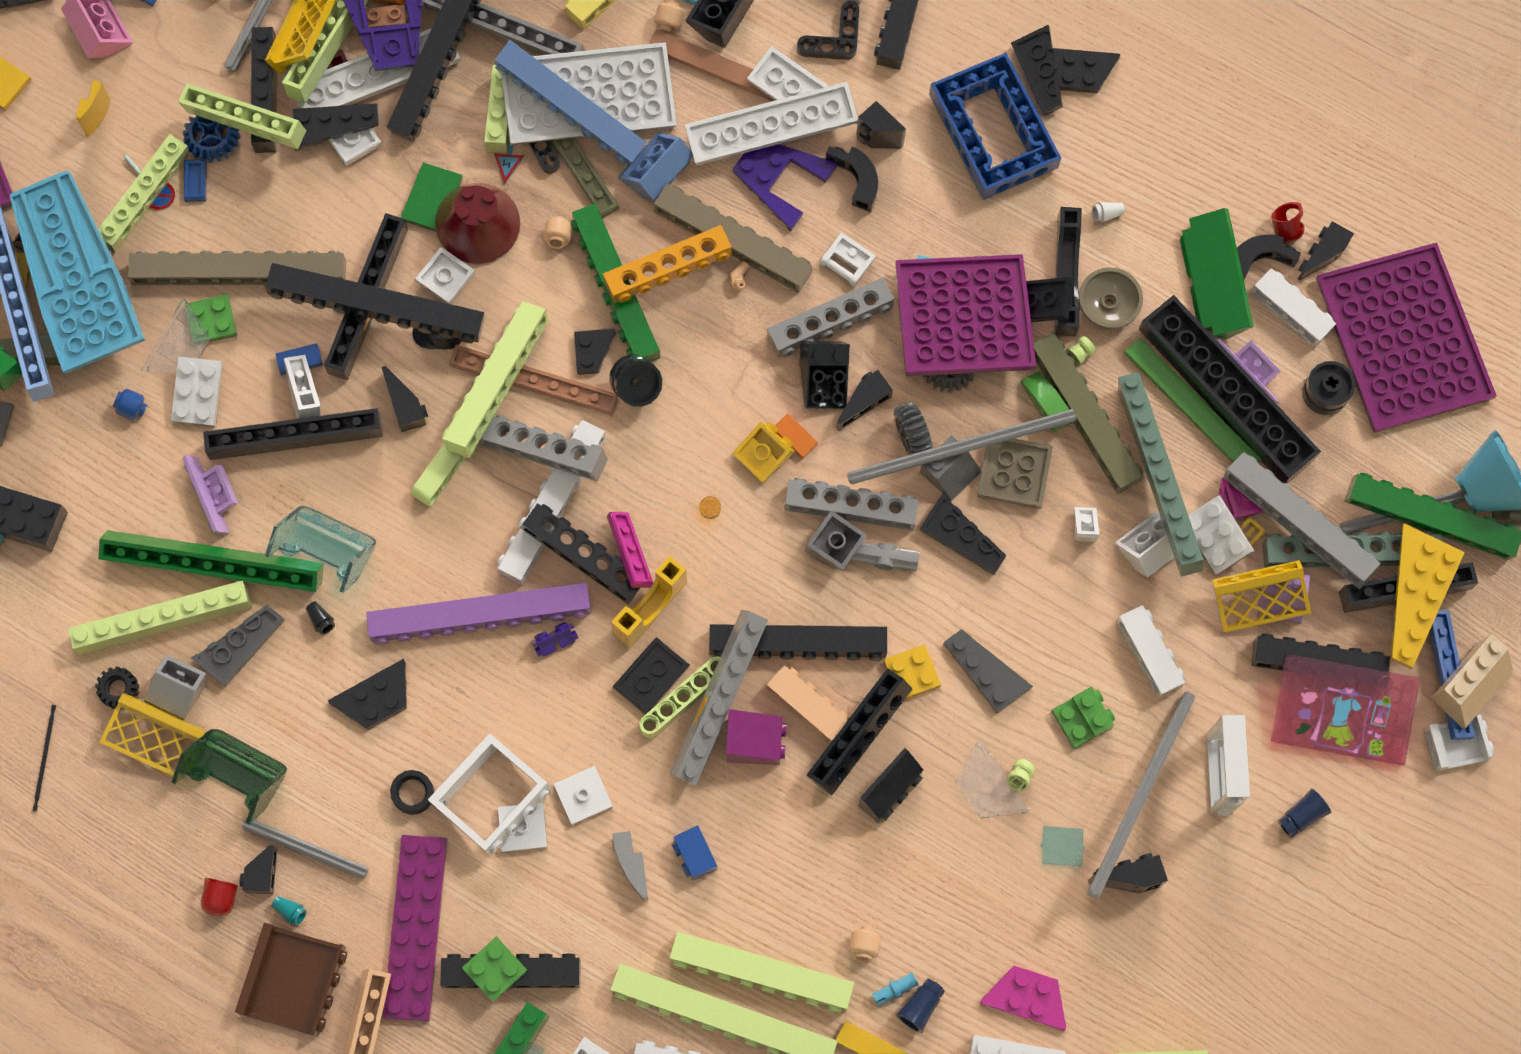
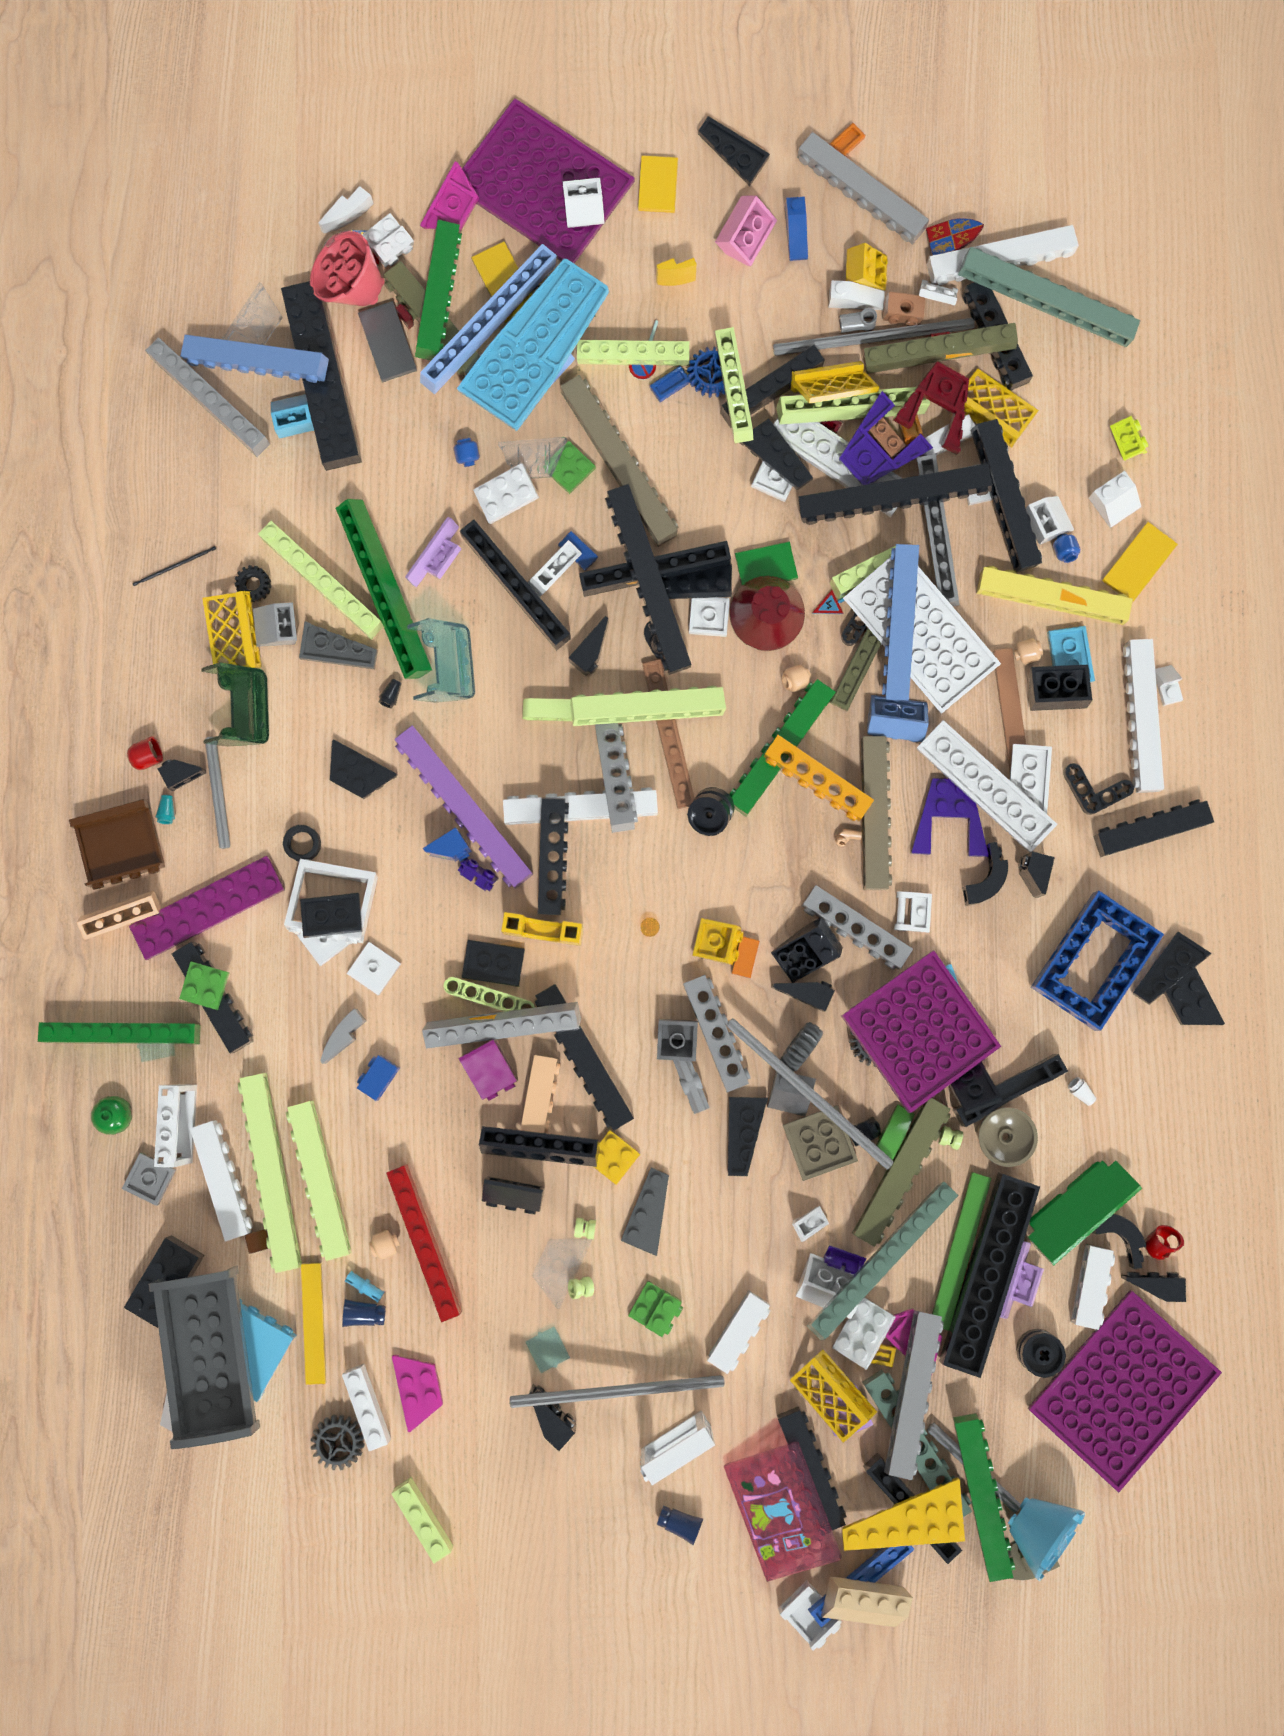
camera: 60 degrees right, 10 degrees up
(411, 260) = (701, 584): none -> black wing
(505, 797) = (331, 915): none -> black tile
(511, 646) = (449, 847): none -> blue slope
(591, 349) = (719, 761): black wing -> none
(630, 550) = (576, 888): dark pink tile -> none
(886, 902) = (424, 1243): none -> red brick
(965, 738) = (589, 1228): none -> yellowish green wheel
(1026, 415) = (869, 1128): none -> black bracket
(1136, 514) = (836, 1258): none -> dark purple hinge

